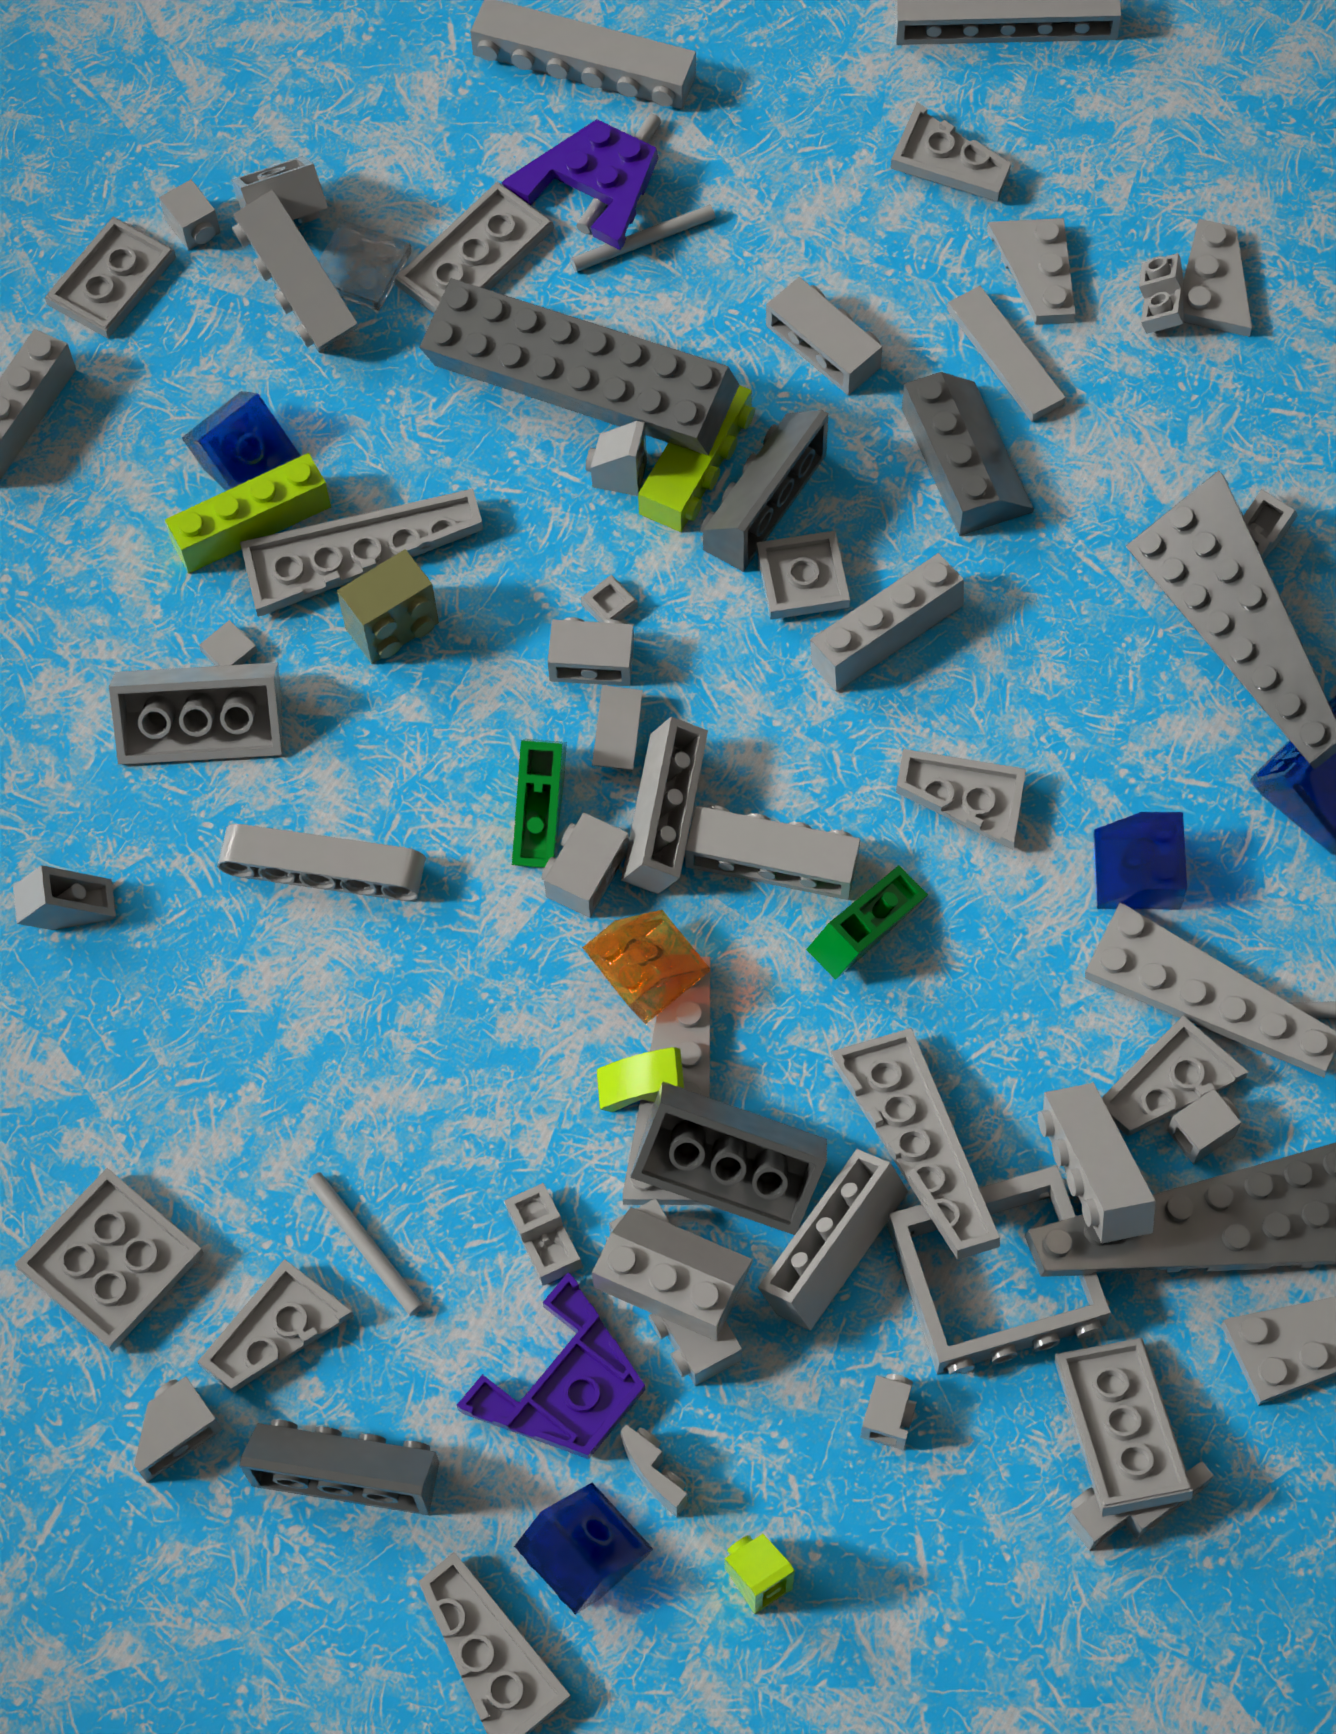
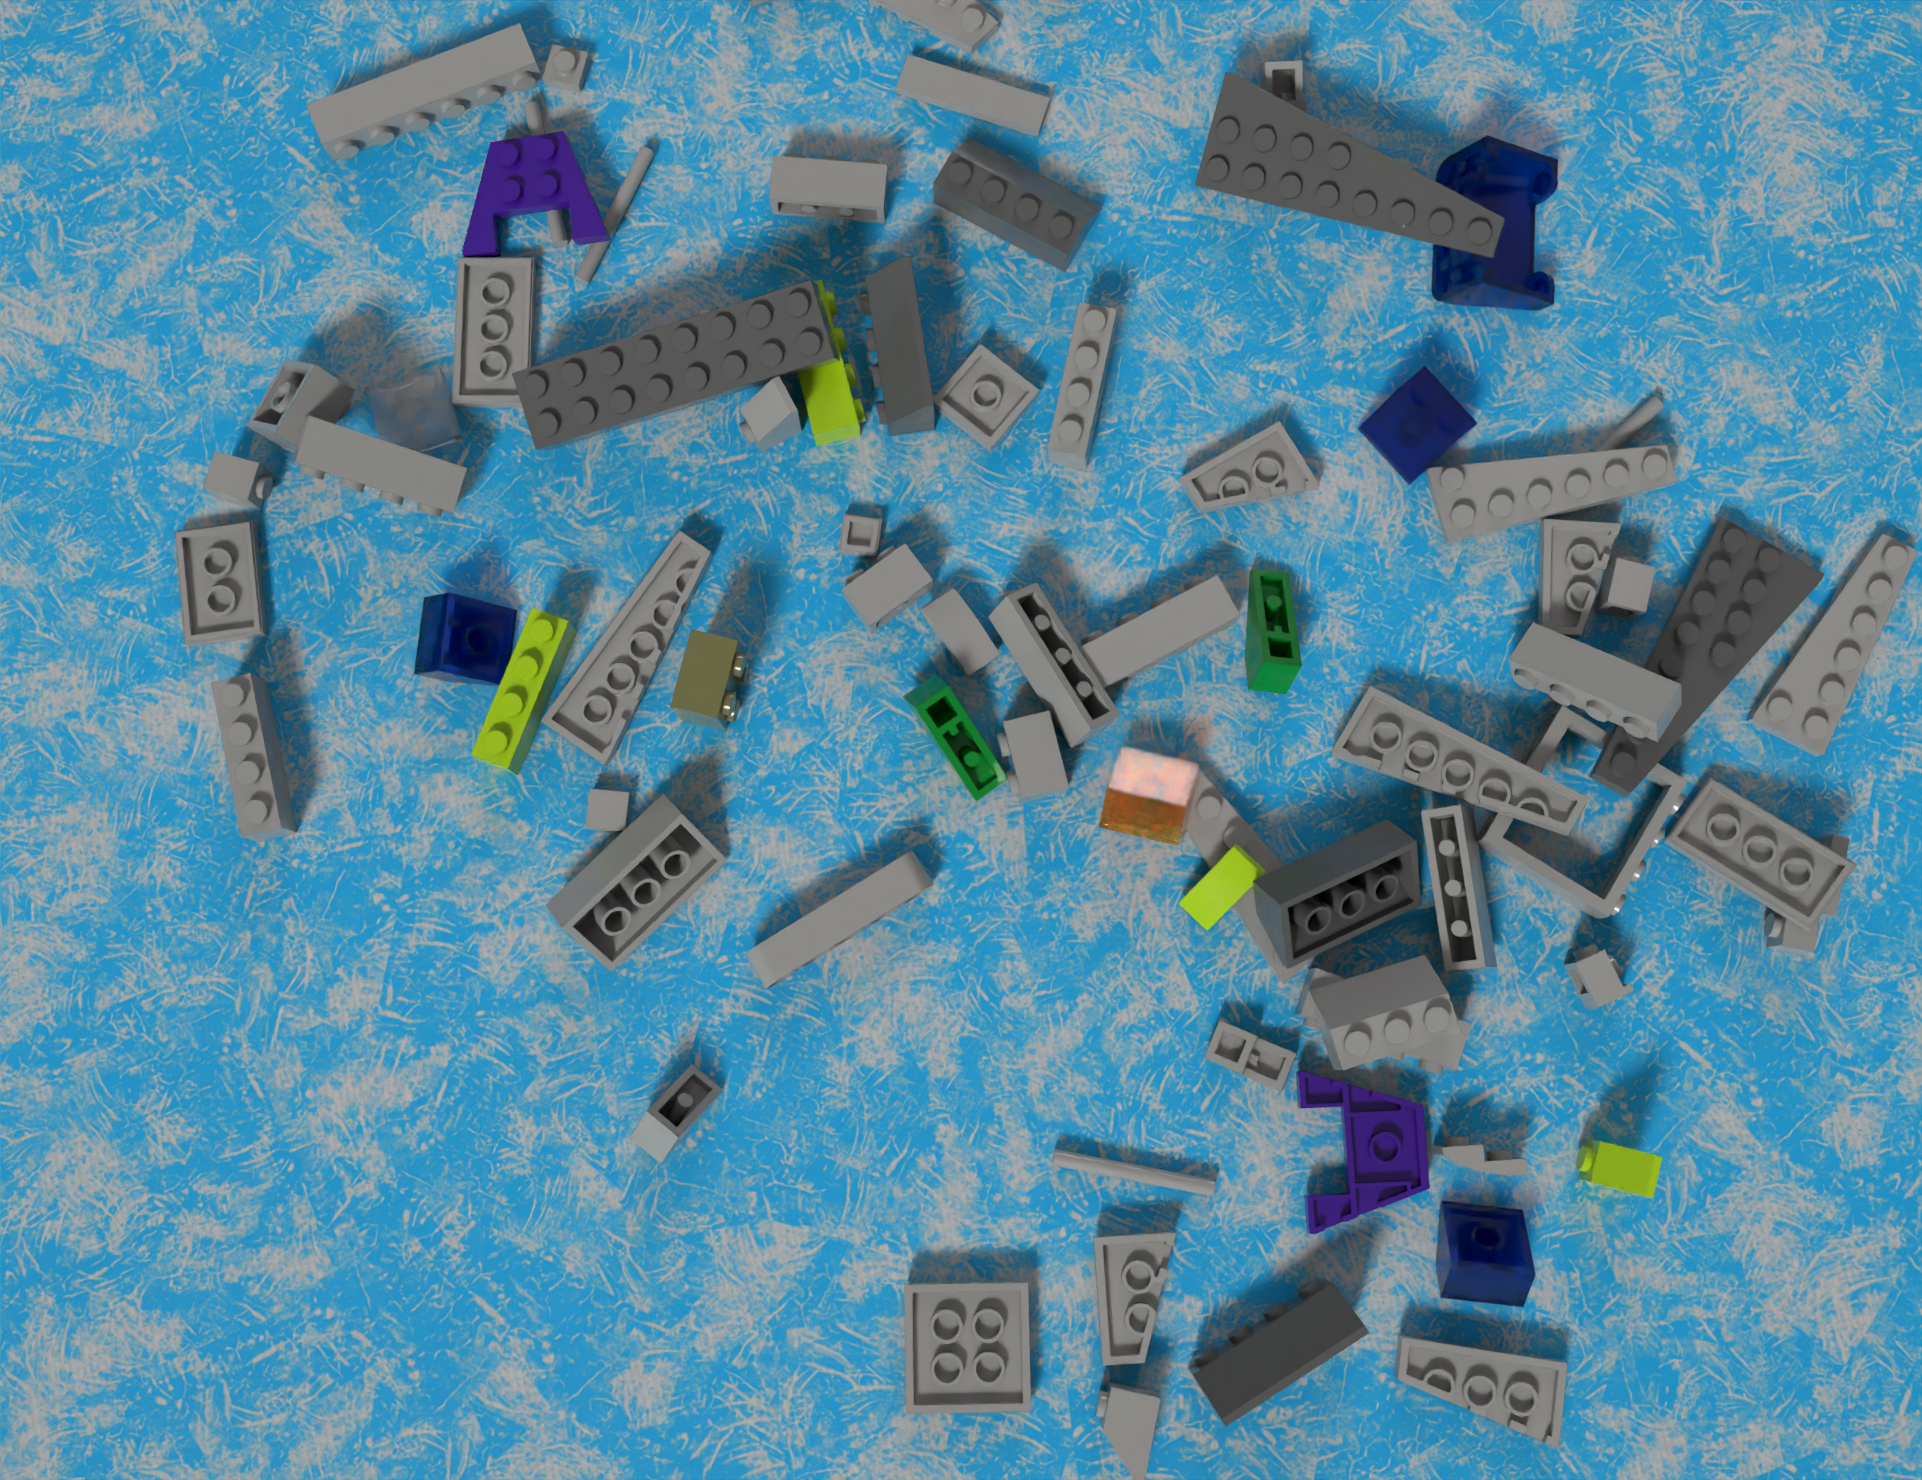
camera: 45 degrees left, 15 degrees up
(706, 112) = (566, 68): none -> light grey plate

